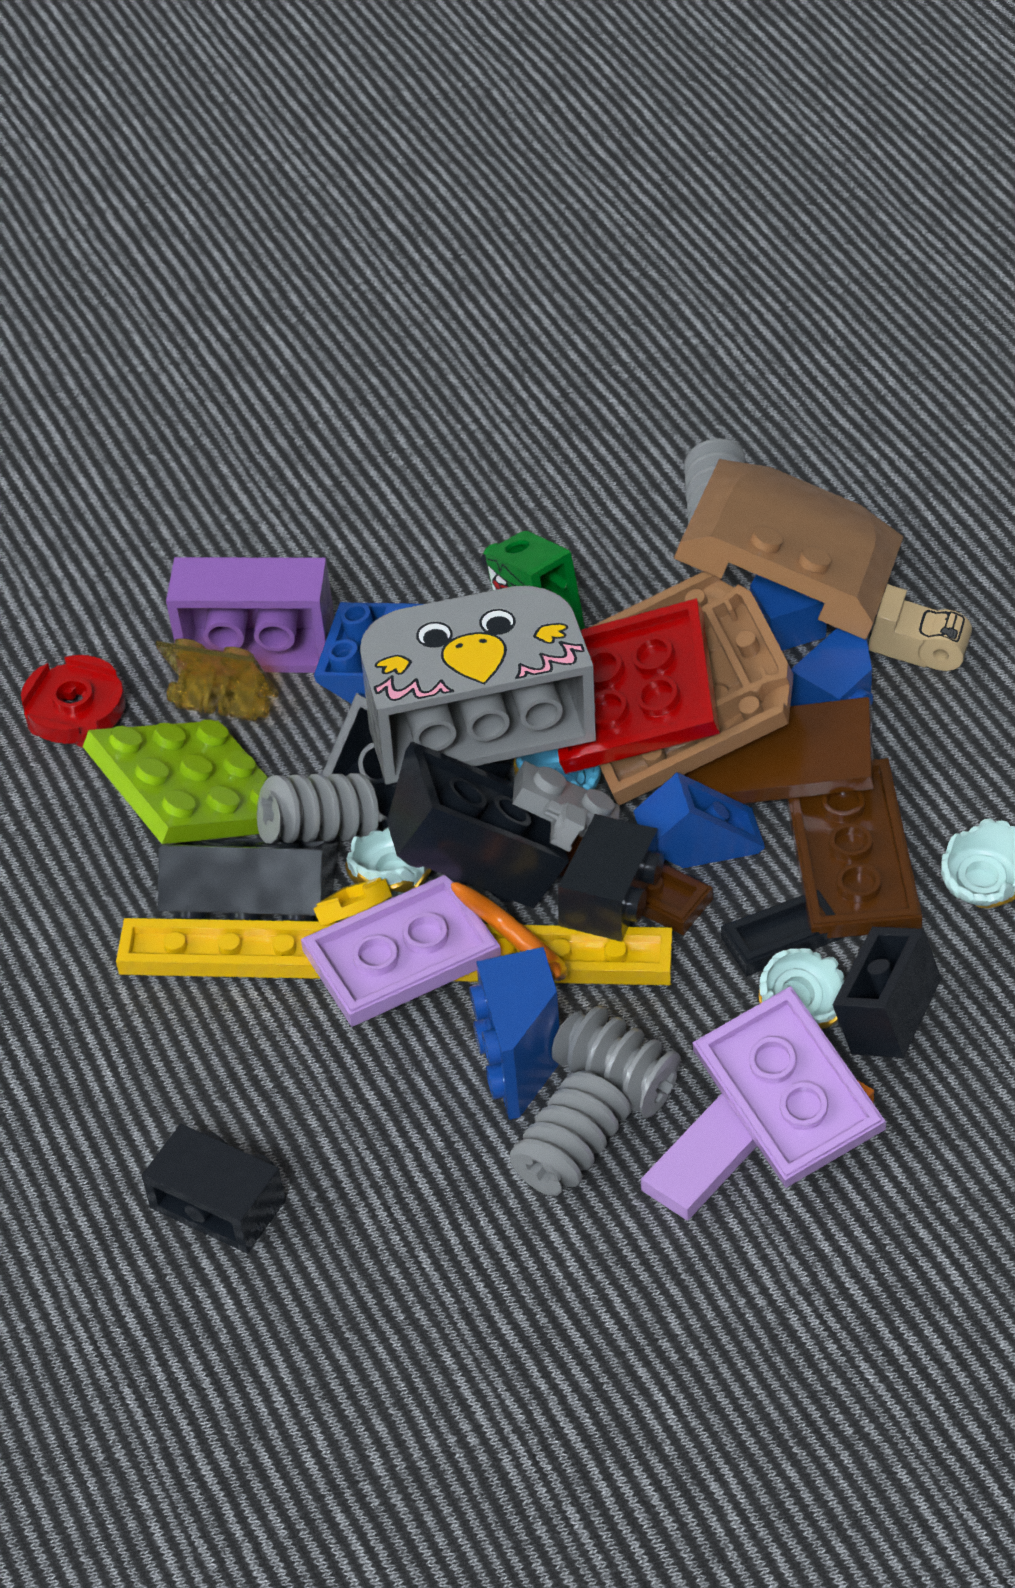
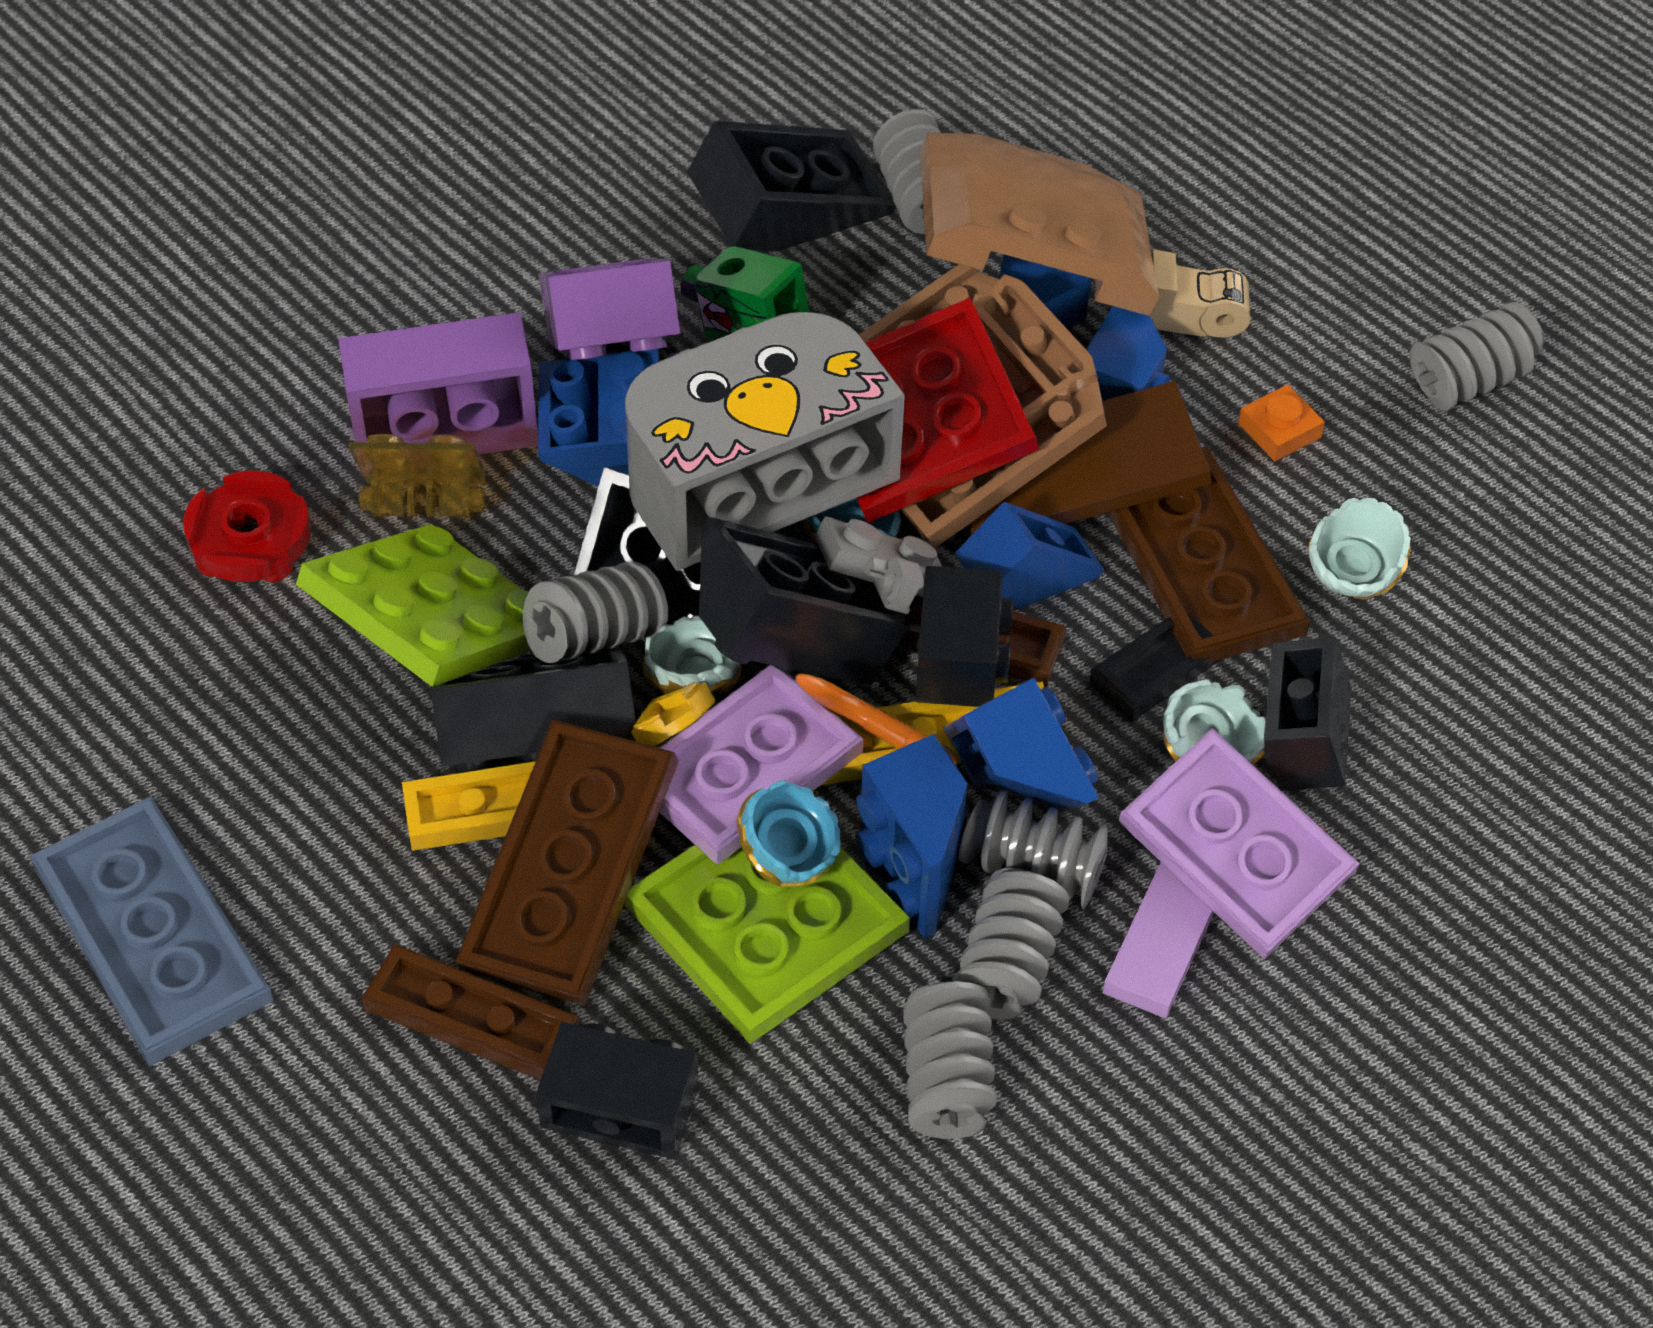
camera: 20 degrees left, 5 degrees up
(115, 1102) = (465, 1011): none -> reddish brown tile
(232, 1002) = (567, 862): none -> reddish brown tile
(381, 1079) = (759, 944): none -> lime plate
(396, 562) = (608, 305): none -> medium lavender brick
(407, 1009) = (788, 834): none -> medium azure hair
(486, 1214) = (948, 1059): none -> light grey piece
(601, 487) = (785, 183): none -> black slope
(615, 973) = (1022, 748): none -> blue slope
(963, 749) = (1281, 422): none -> orange plate

